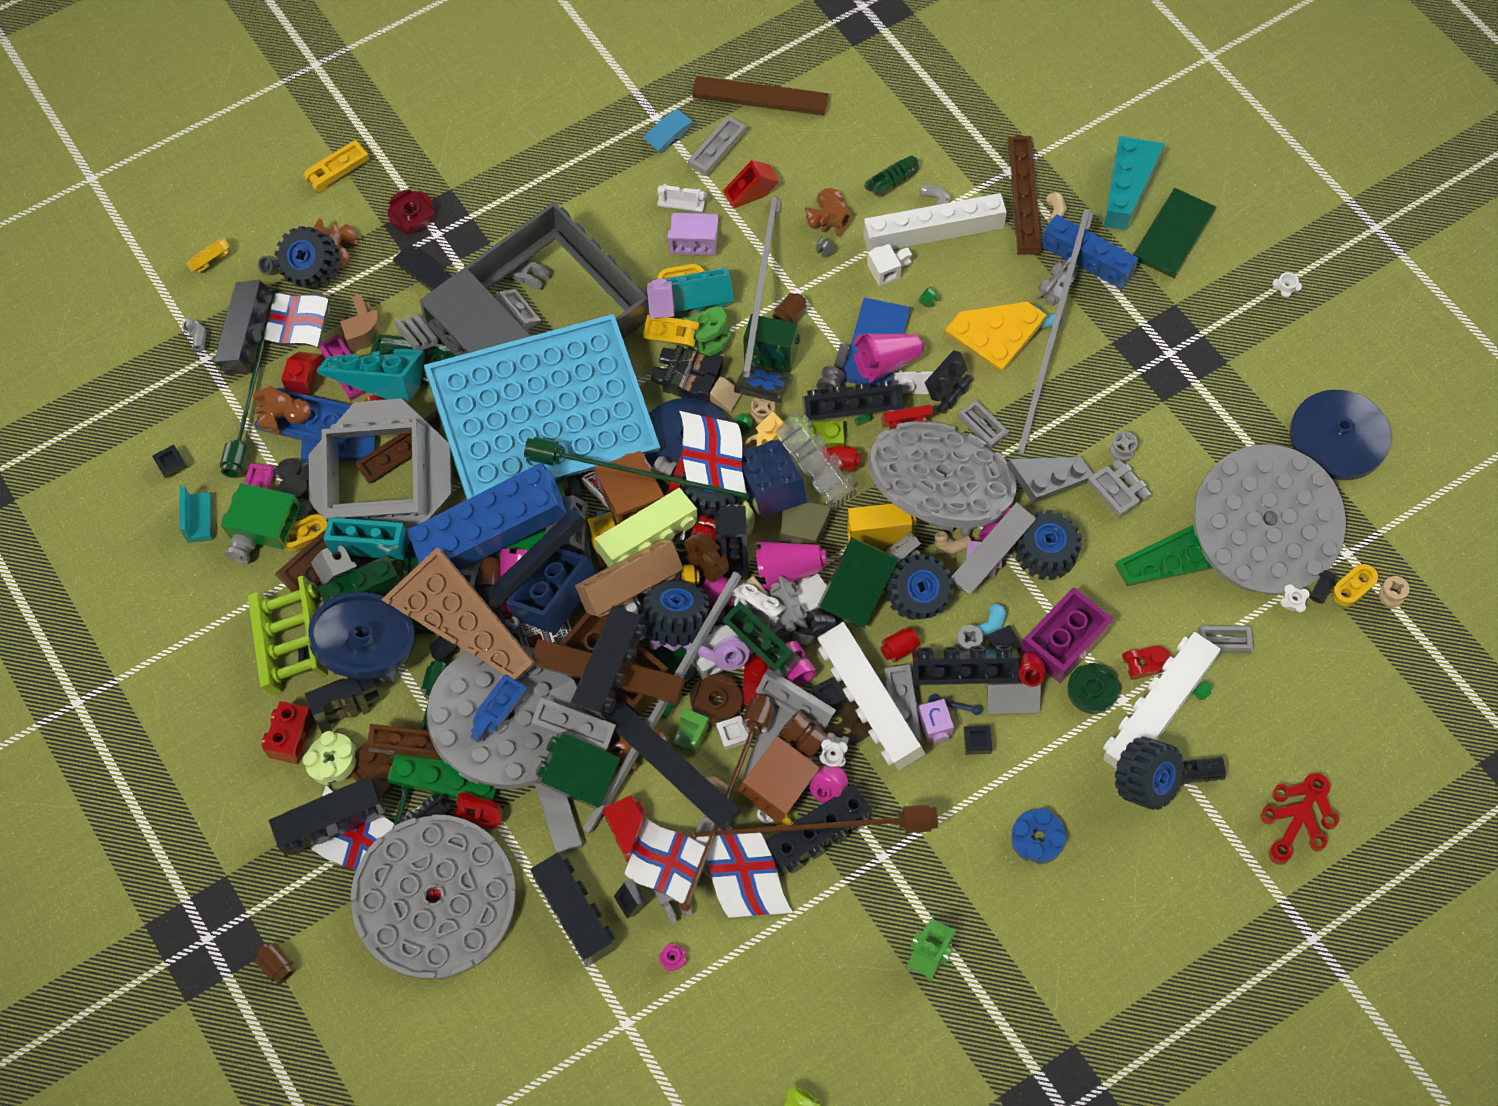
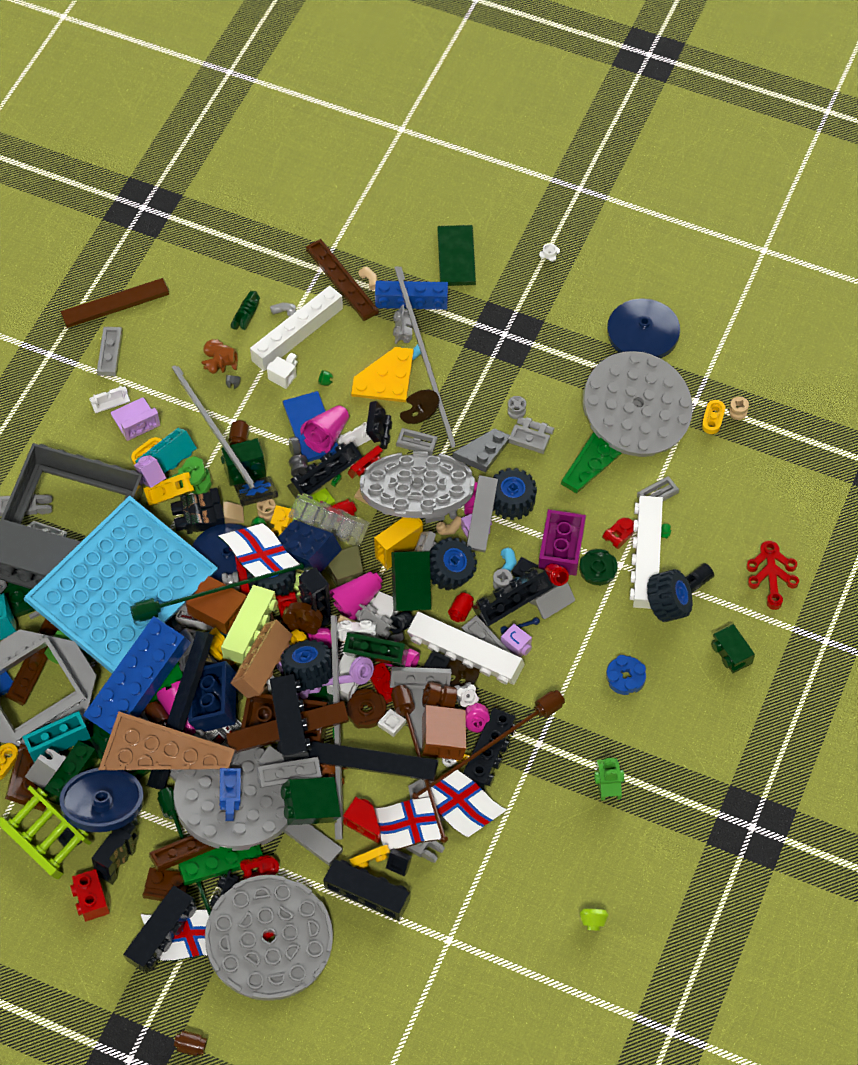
camera: 35 degrees left, 5 degrees down
(330, 744) = (125, 886): yellowish green plate -> none
(591, 872) = (378, 854): none -> yellow plate
(667, 129) = (66, 358): dark azure slope -> none
(677, 963) = (450, 887): dark pink plate -> none
(692, 731) = (364, 735): bright green panel -> none
(751, 184) = (152, 365): red slope -> none
(977, 740) = (549, 638): black plate -> none
(1018, 384) = (423, 402): none -> dark brown piece
(1131, 173) = (404, 232): teal wedge -> none
(1186, 881) = (732, 648): none -> dark green brick
(1292, 605) = (681, 449): white plate -> none
(1323, 586) = (695, 428): black pin -> none

